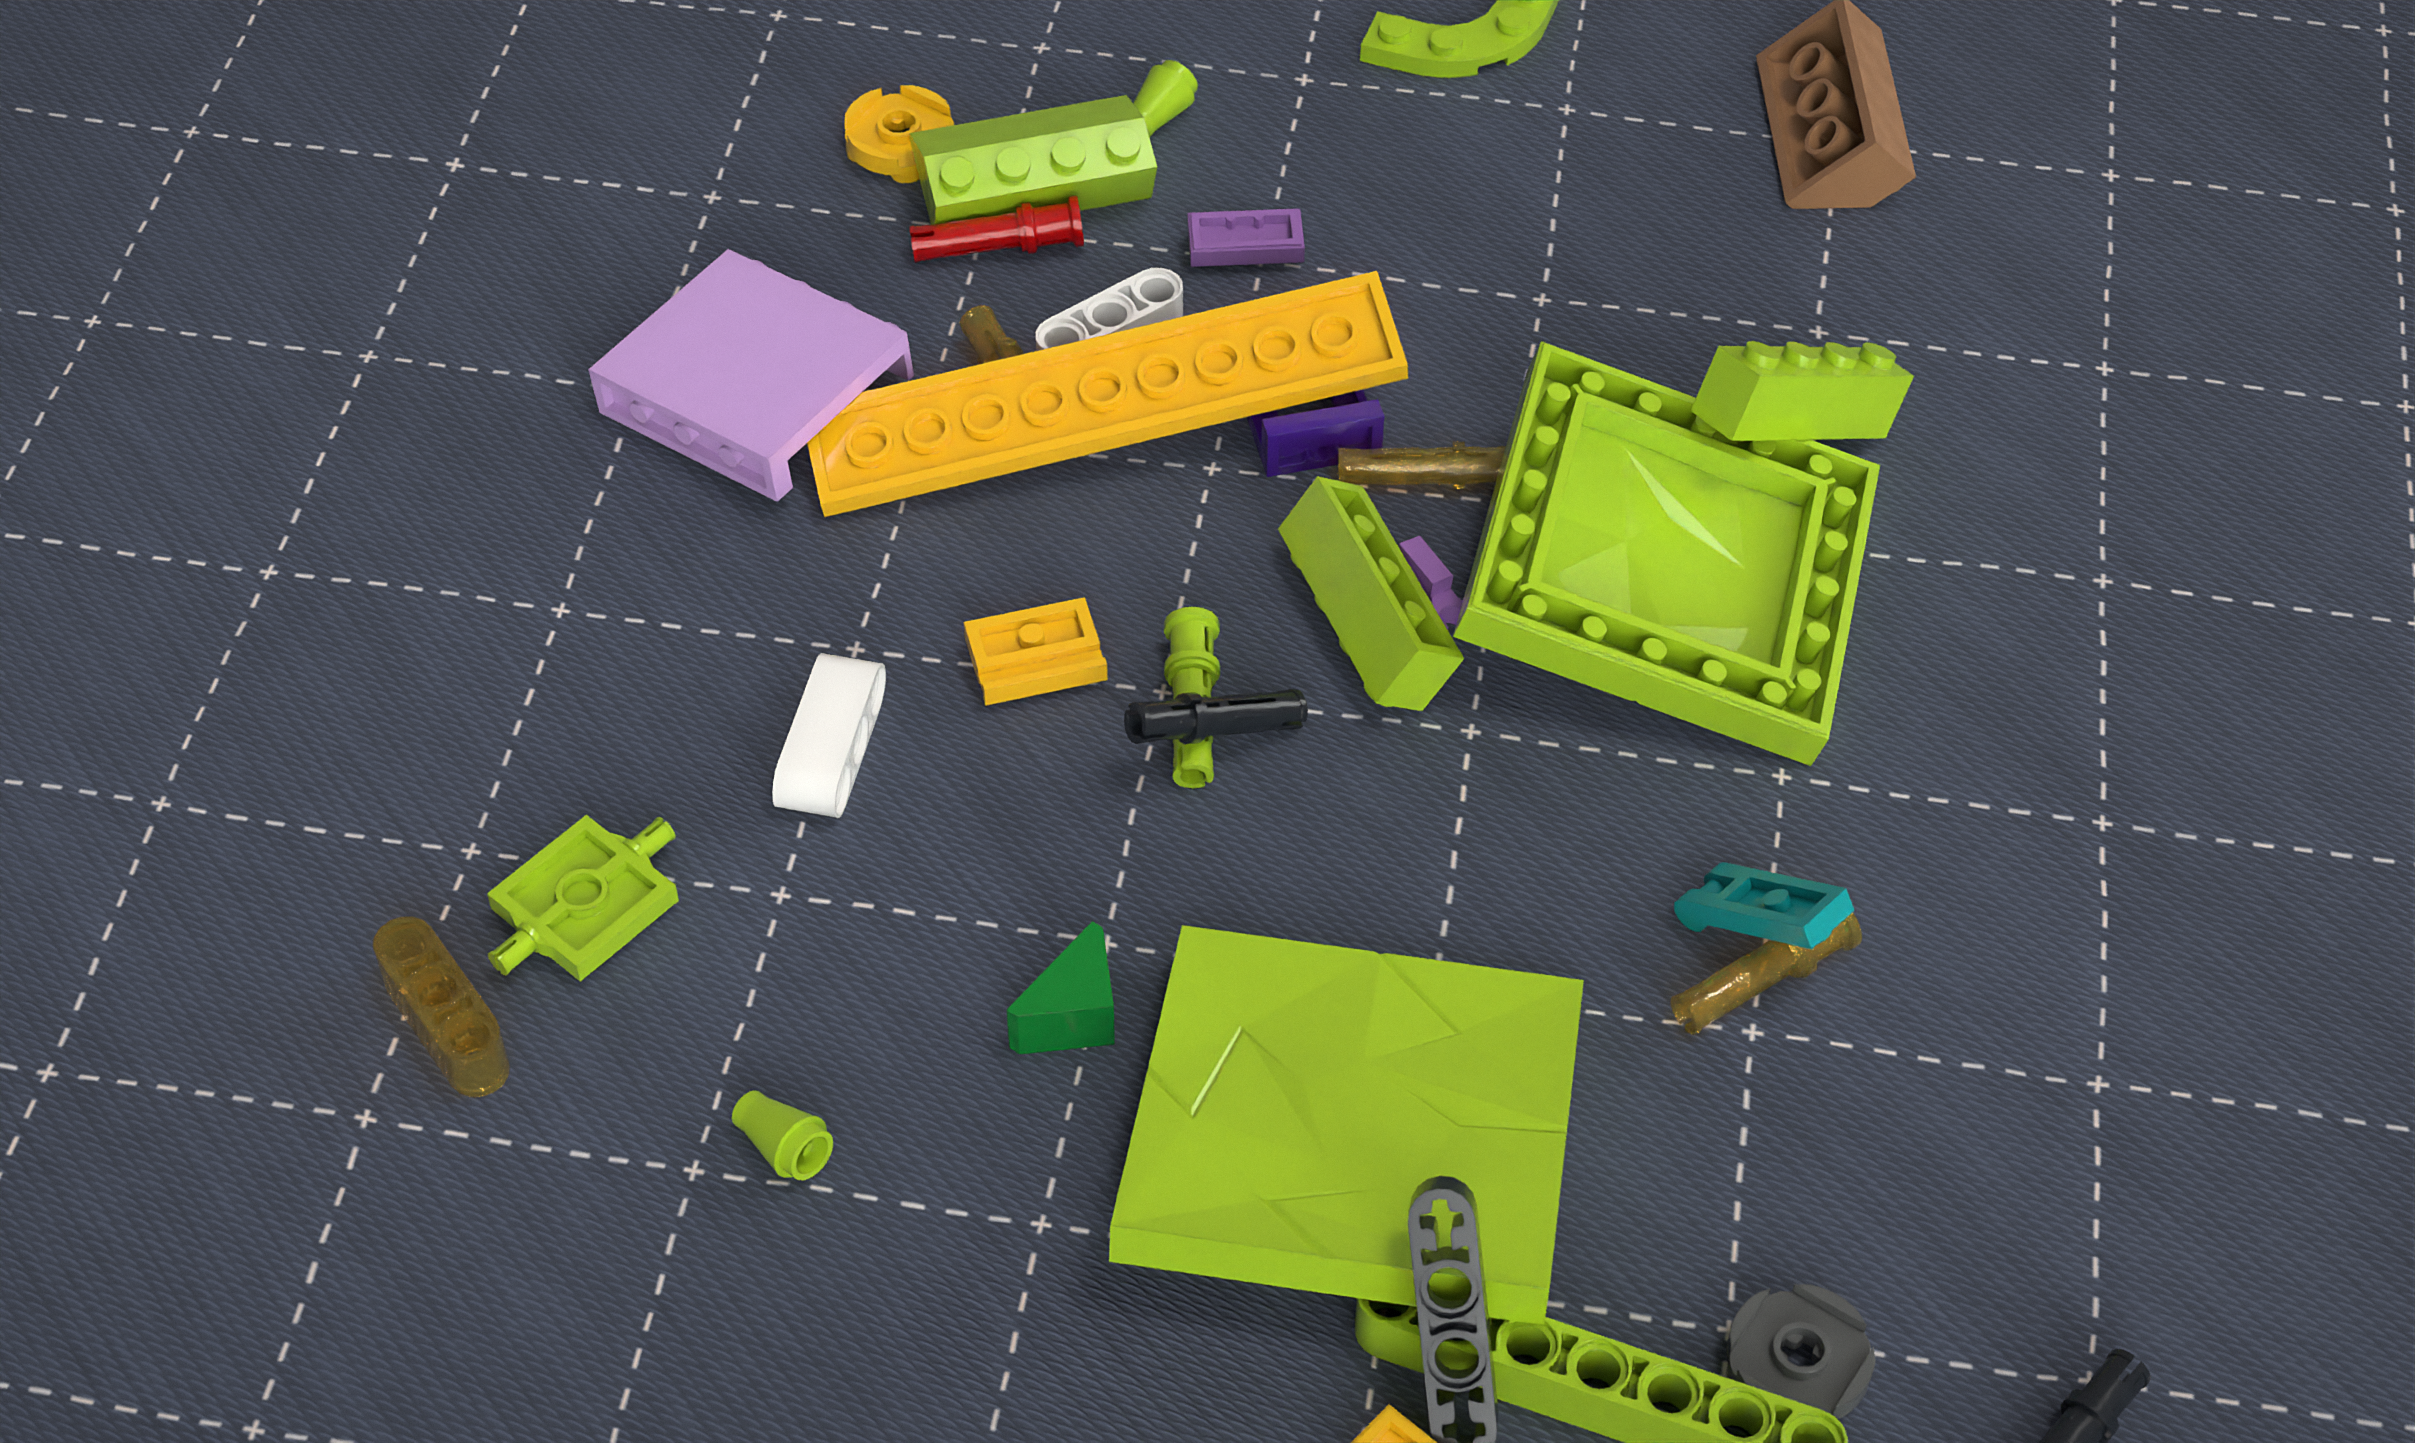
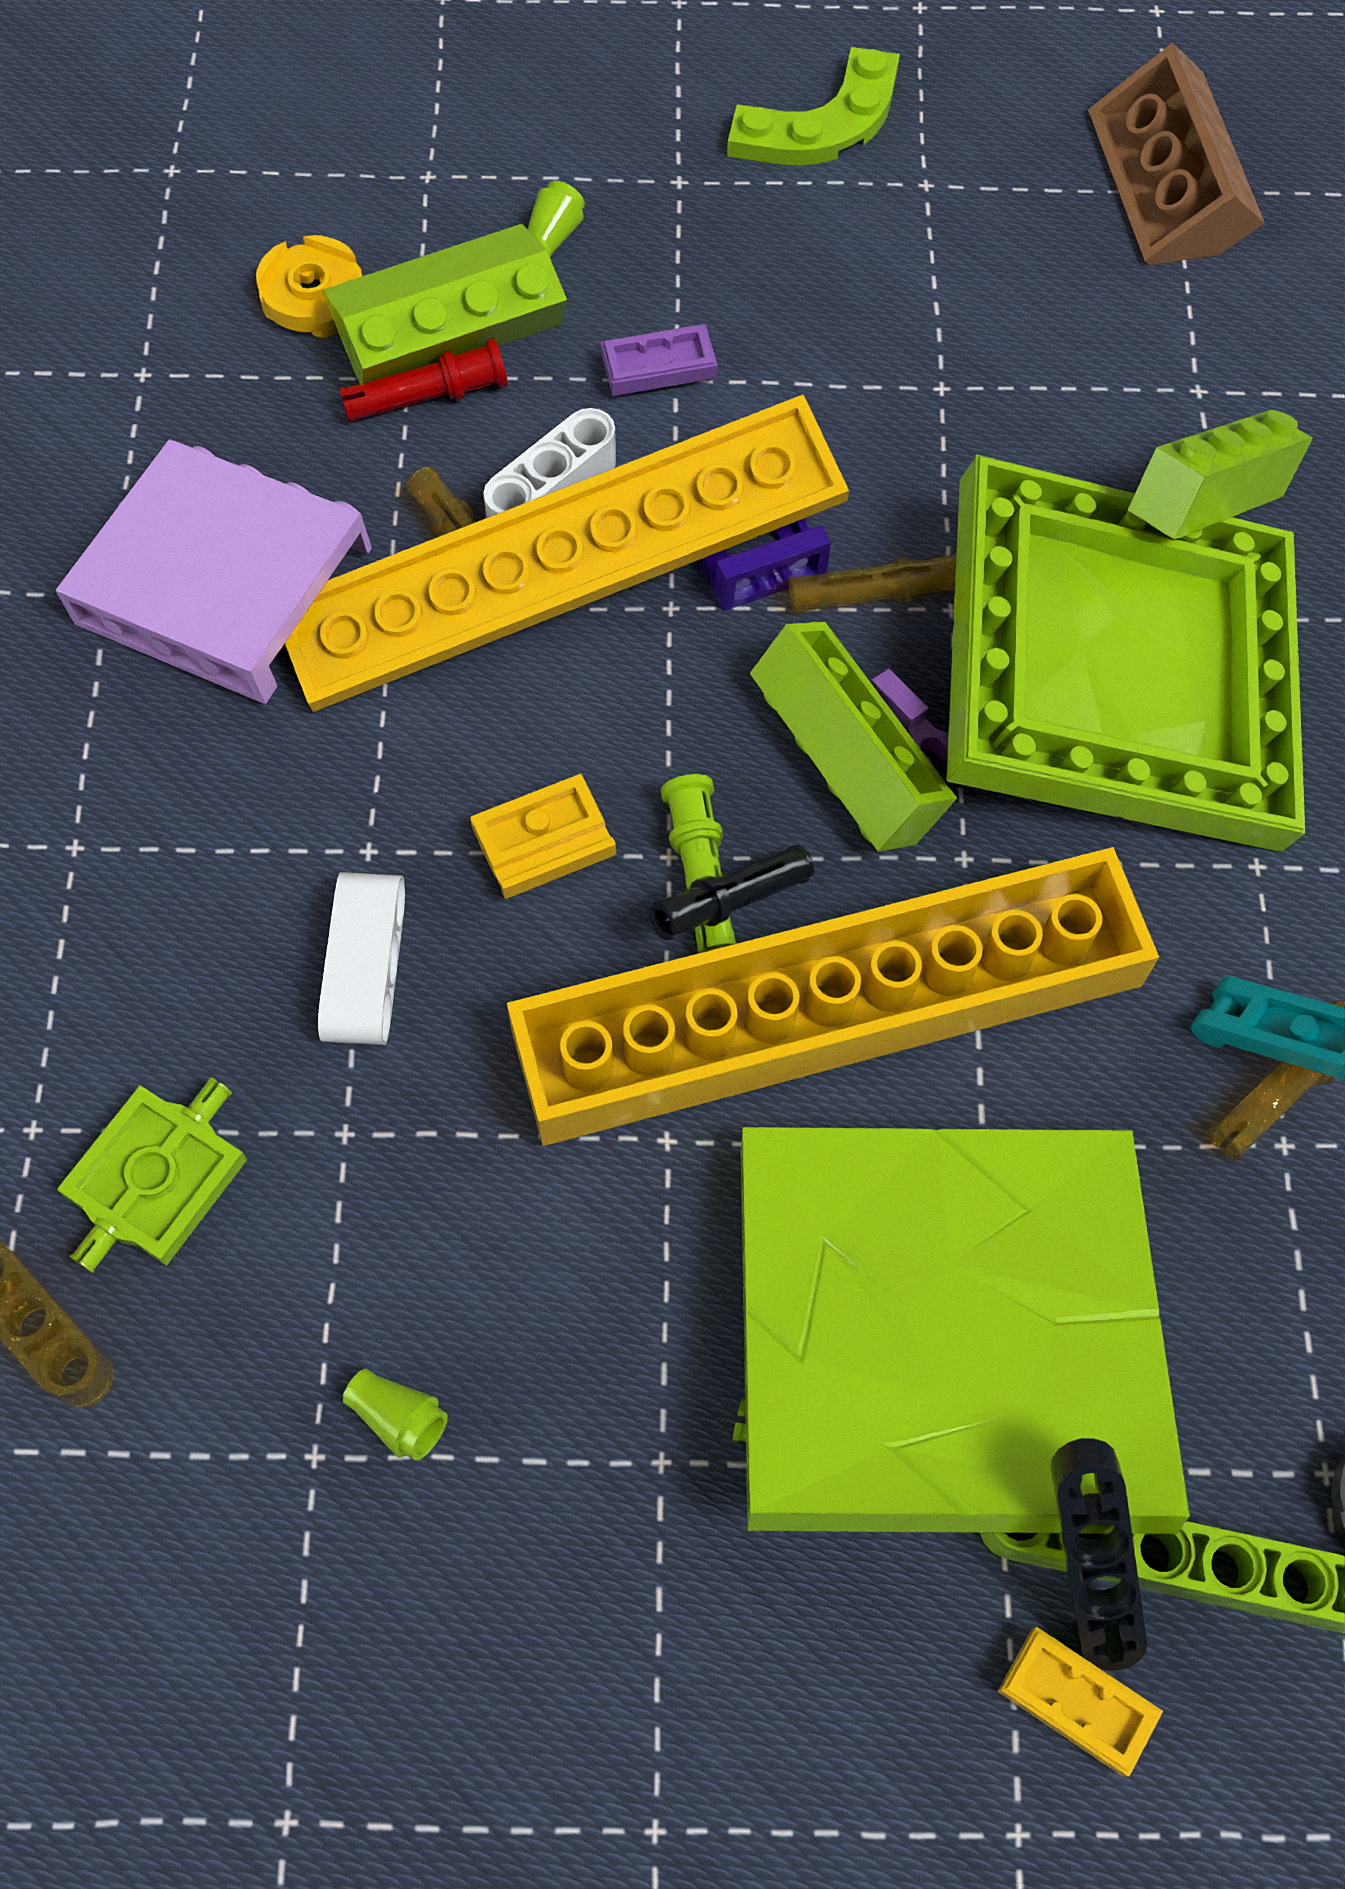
camera: 10 degrees left, 15 degrees up
(1068, 1002) = (651, 1220): green slope -> none
(1298, 820) = (829, 995): none -> yellow brick

